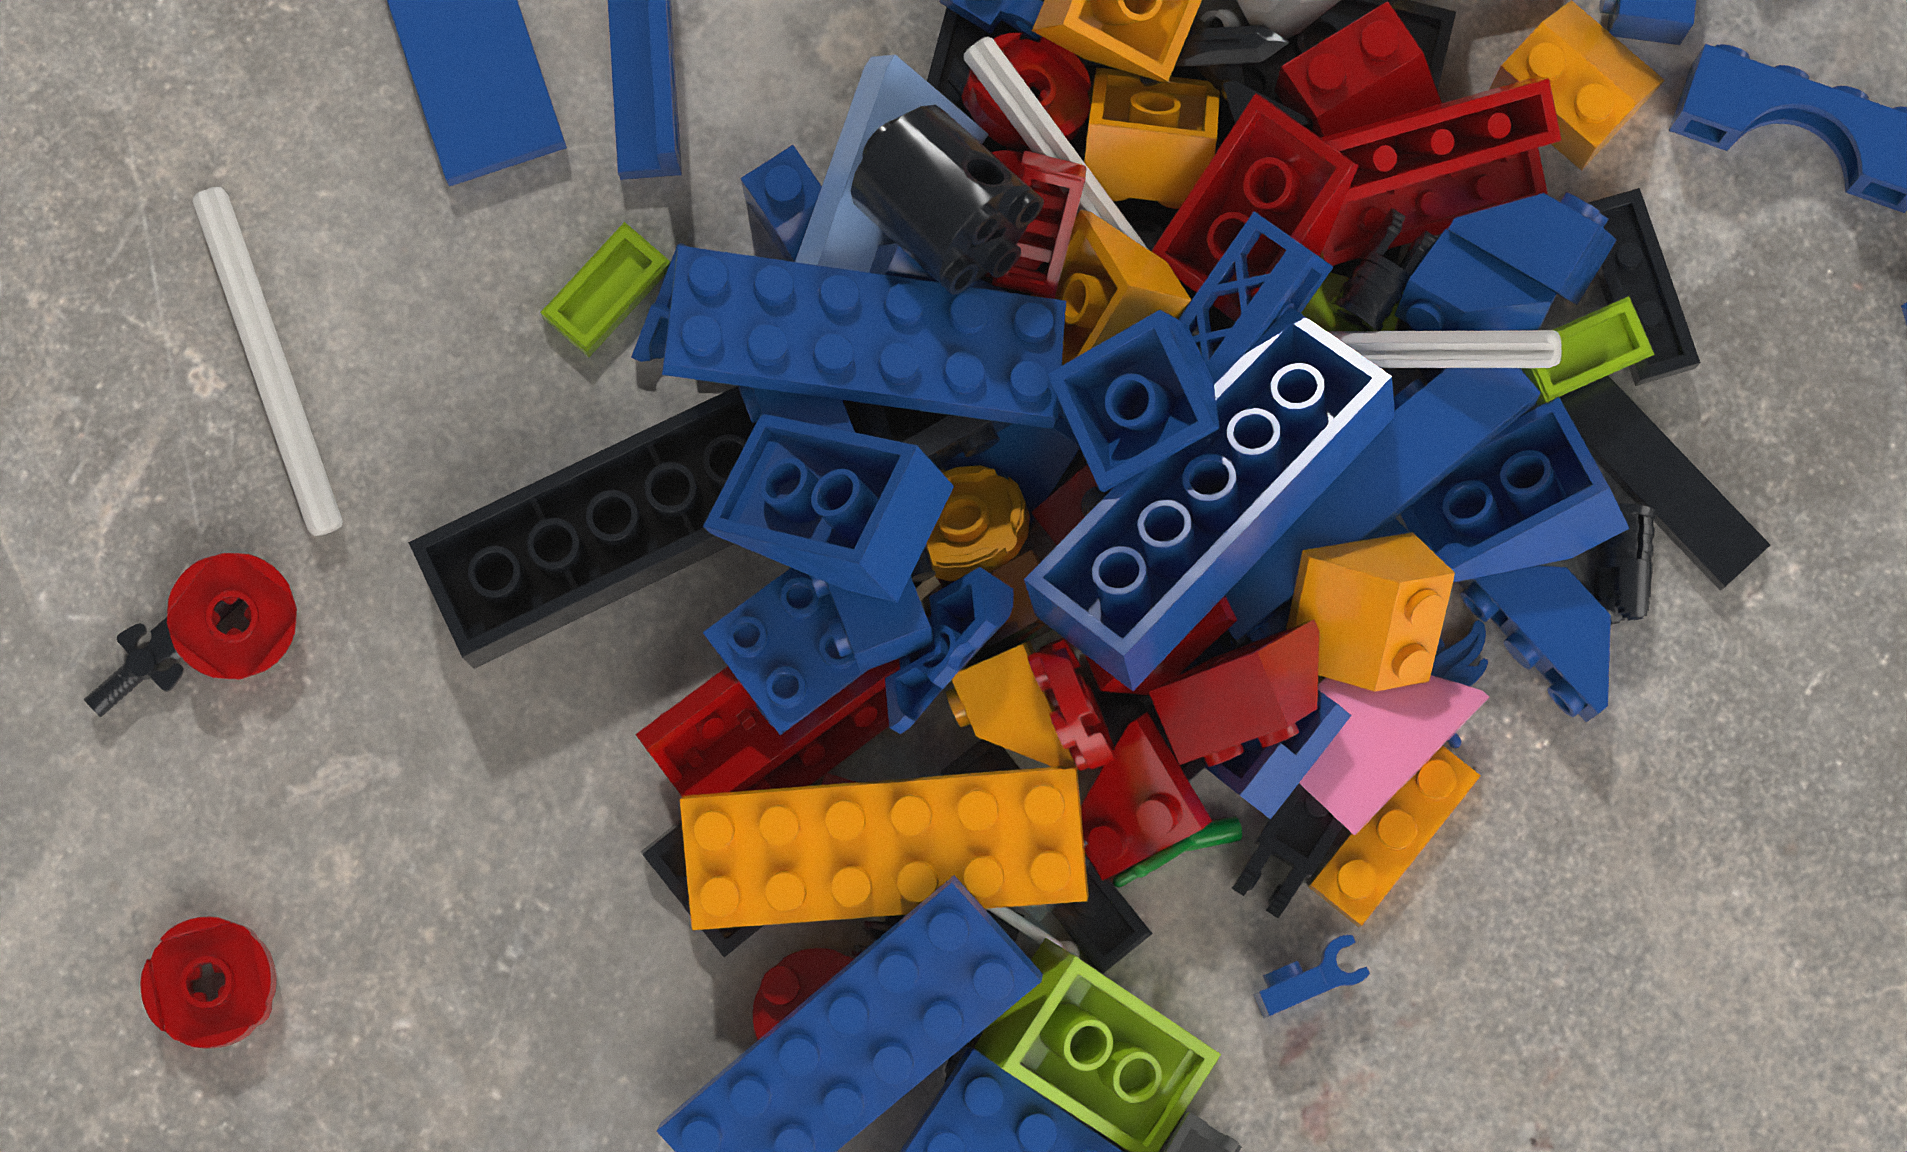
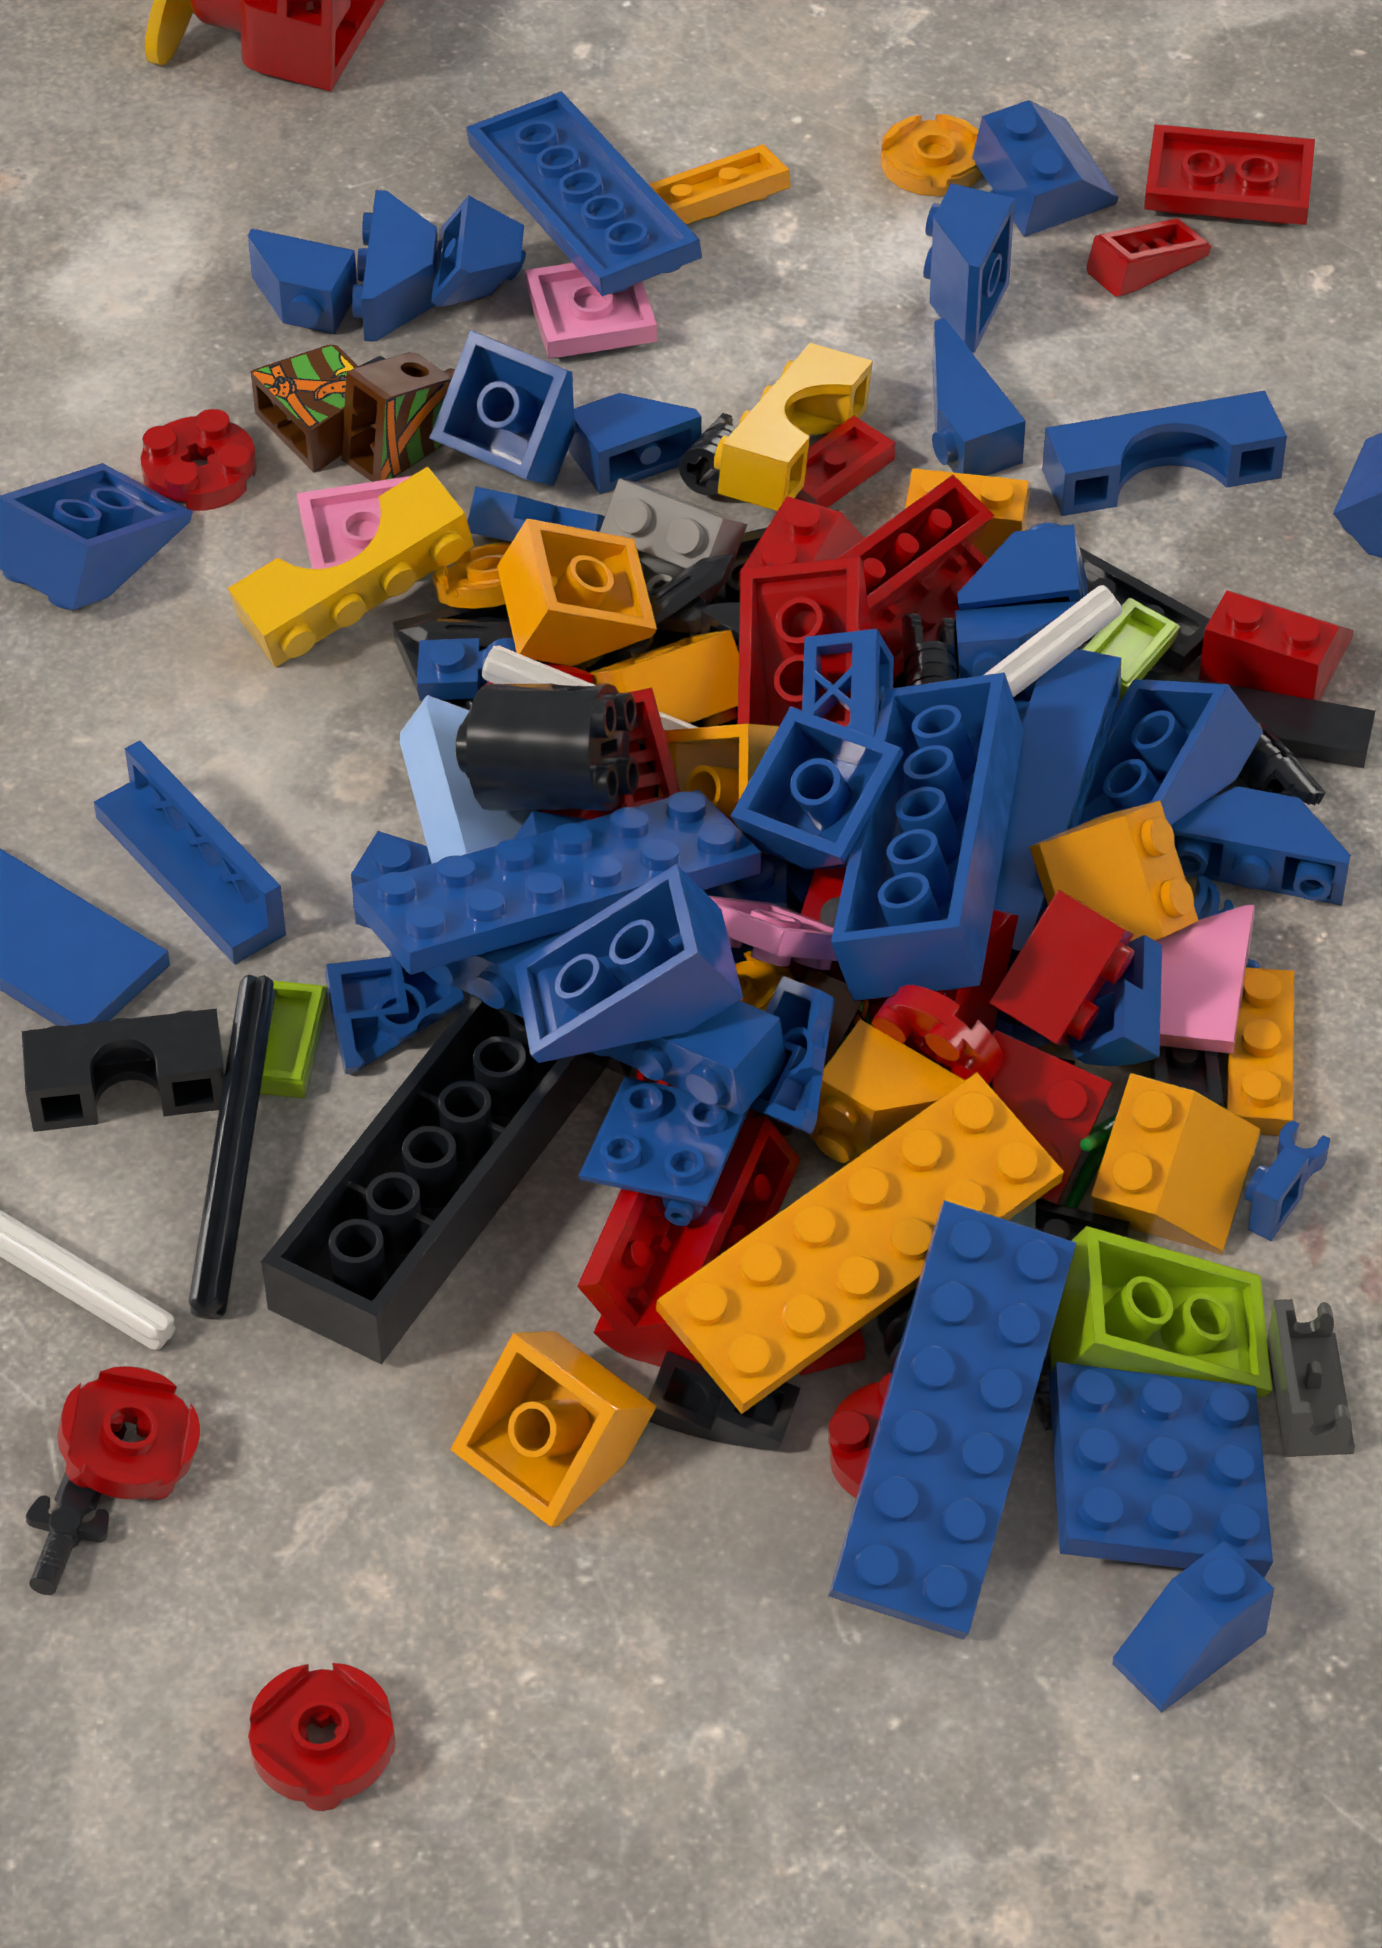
camera: 35 degrees left, 30 degrees down
(406, 219) = (76, 1063): none -> black arch
(487, 382) = (232, 1148): none -> black axle
(558, 823) = (551, 1425): none -> light orange slope
(1016, 490) = (777, 933): none -> bright pink plate
(1216, 919) = (1175, 1164): none -> light orange slope
(1738, 414) = (1271, 648): none -> red slope

